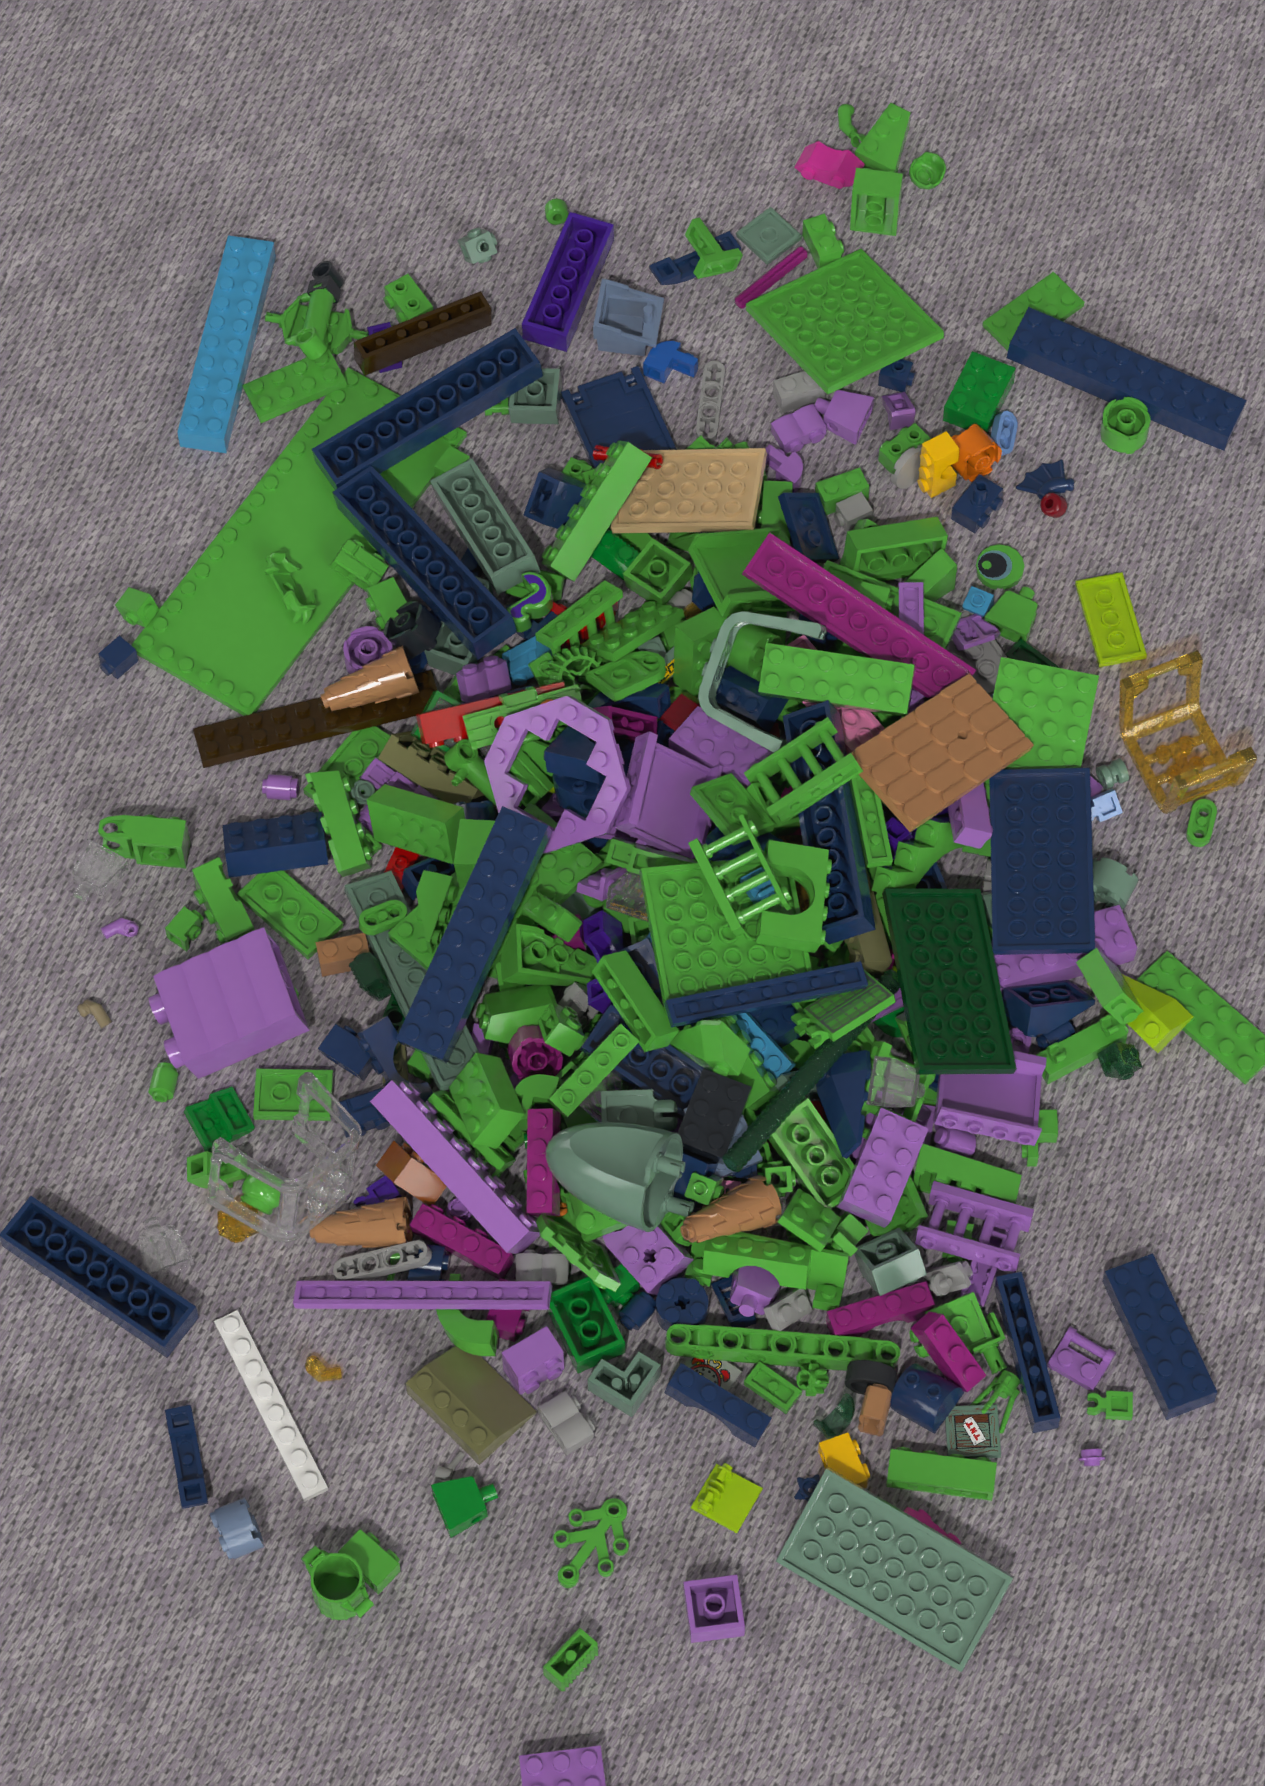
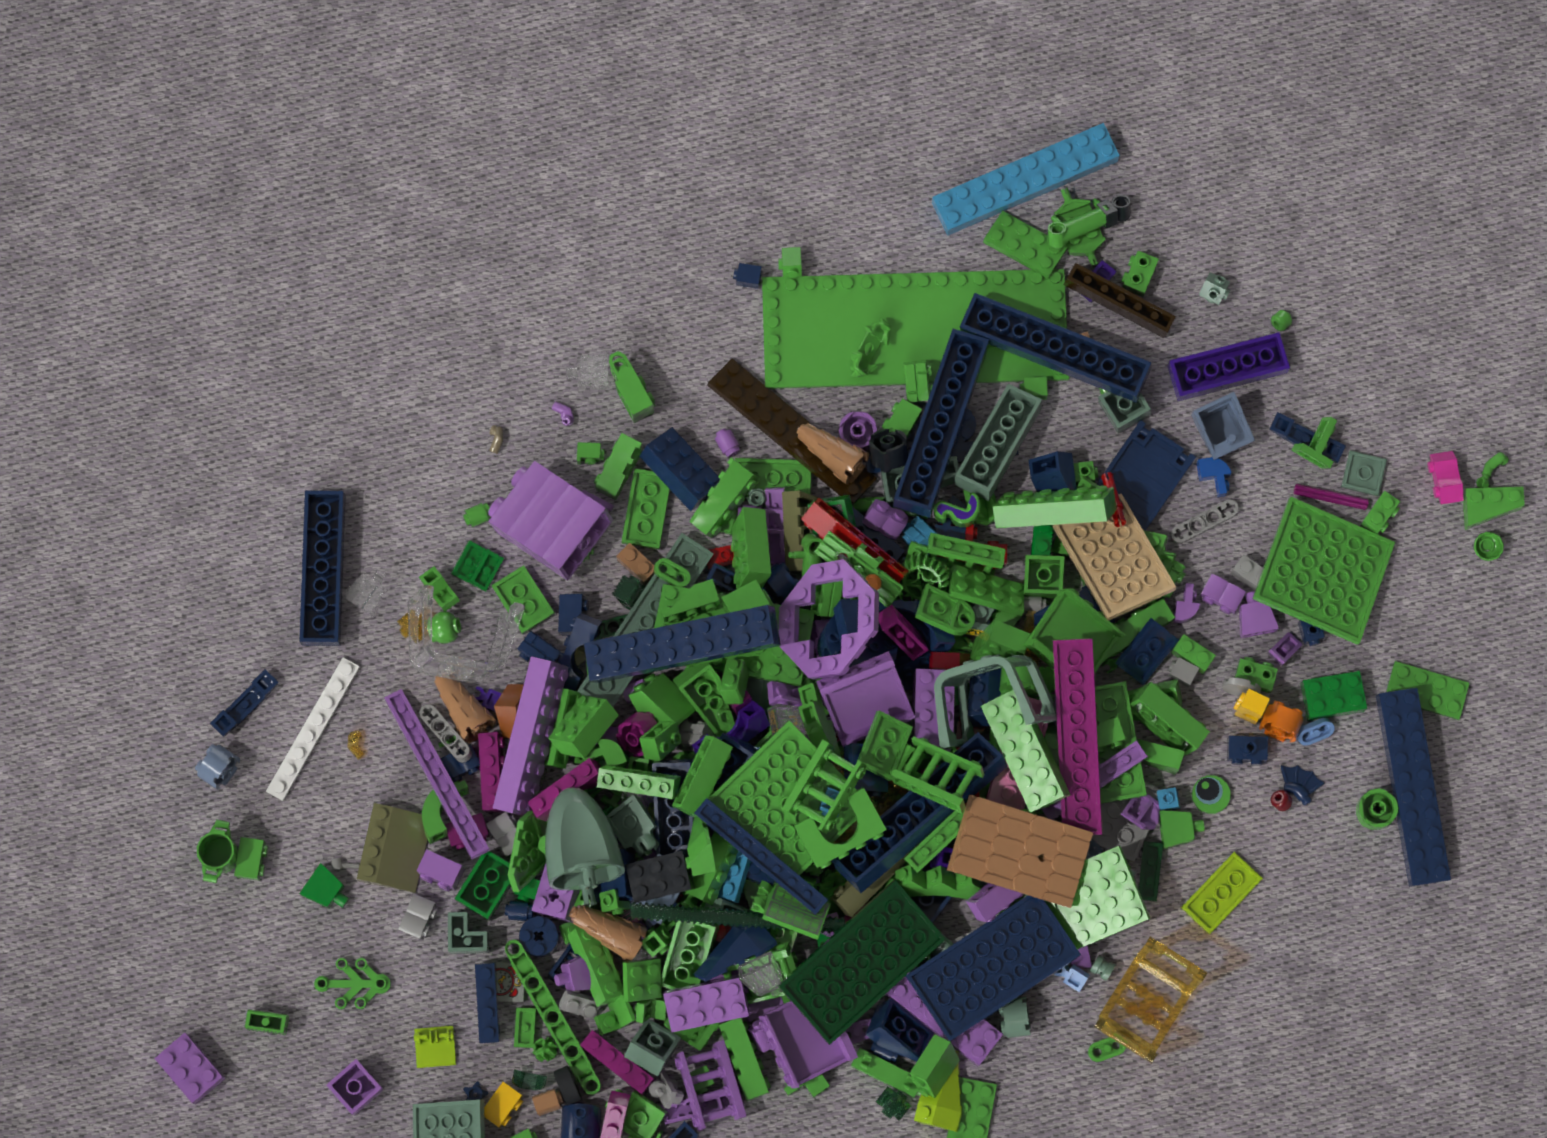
camera: 55 degrees right, 15 degrees up
(876, 201) = (1432, 529): bright green brick -> none

